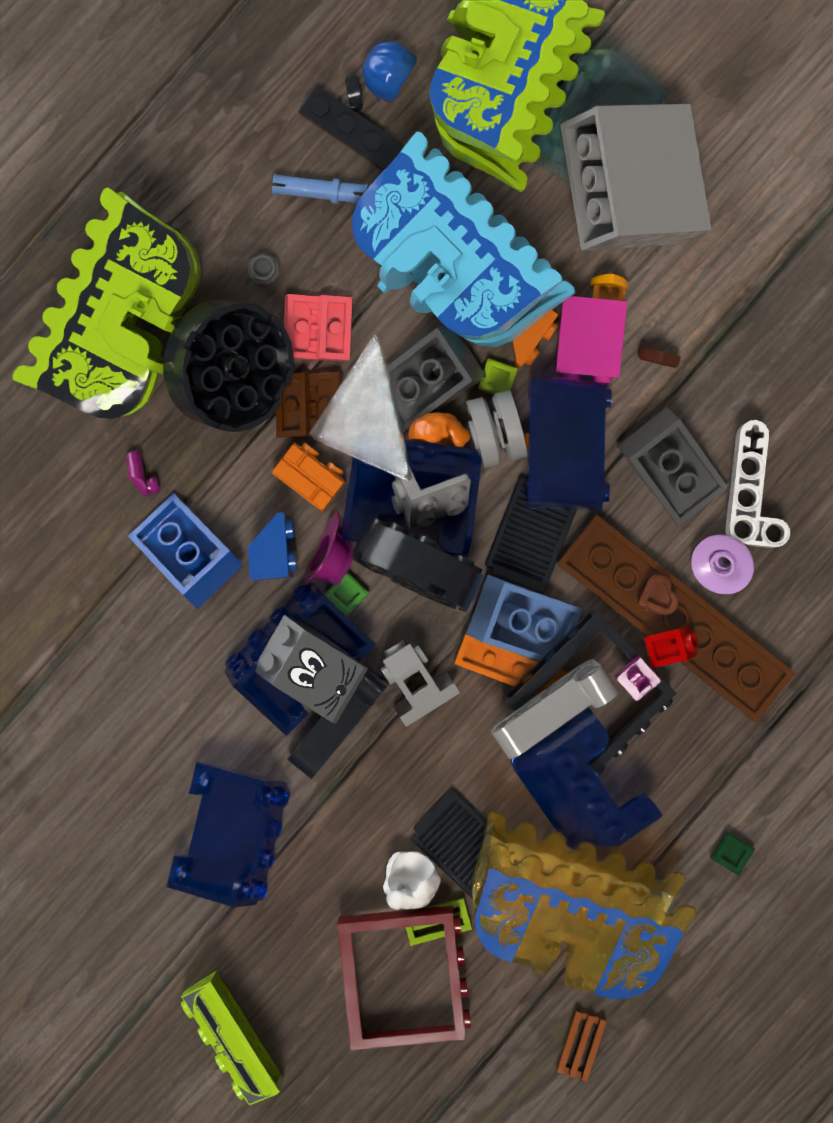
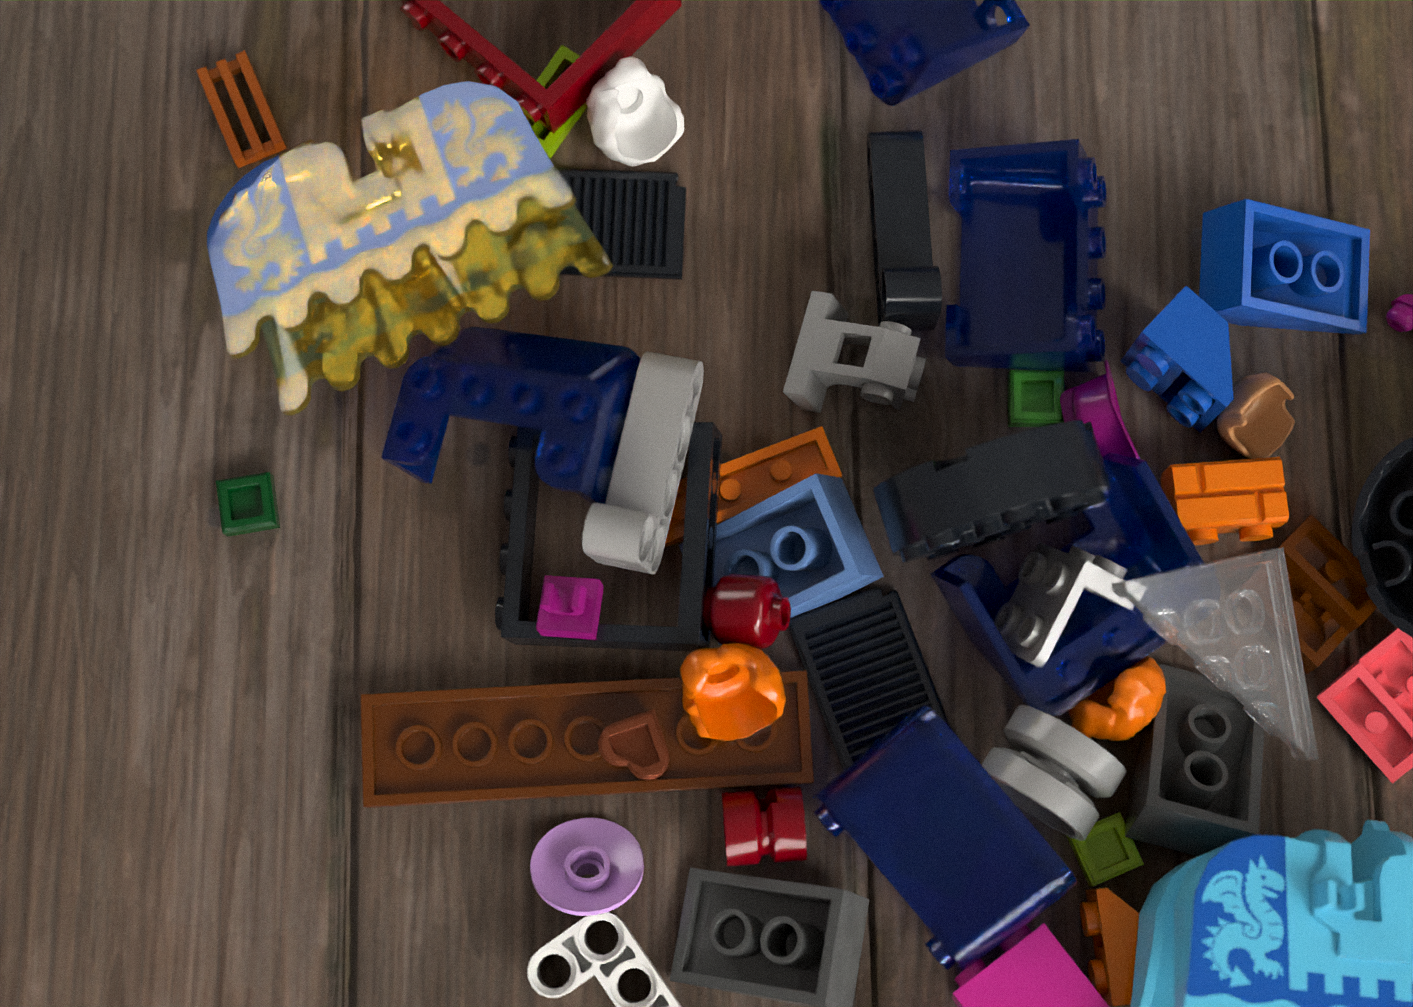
camera: 135 degrees right, 10 degrees down
(262, 499) = (1257, 417): none -> medium nougat hair
(310, 668) = (1003, 250): dark grey slope -> none
(564, 610) = (746, 610): none -> dark red head
(601, 581) = (731, 691): none -> orange hair
(634, 514) = (764, 826): none -> dark red wheel
(671, 646) = (560, 692): red bracket -> none

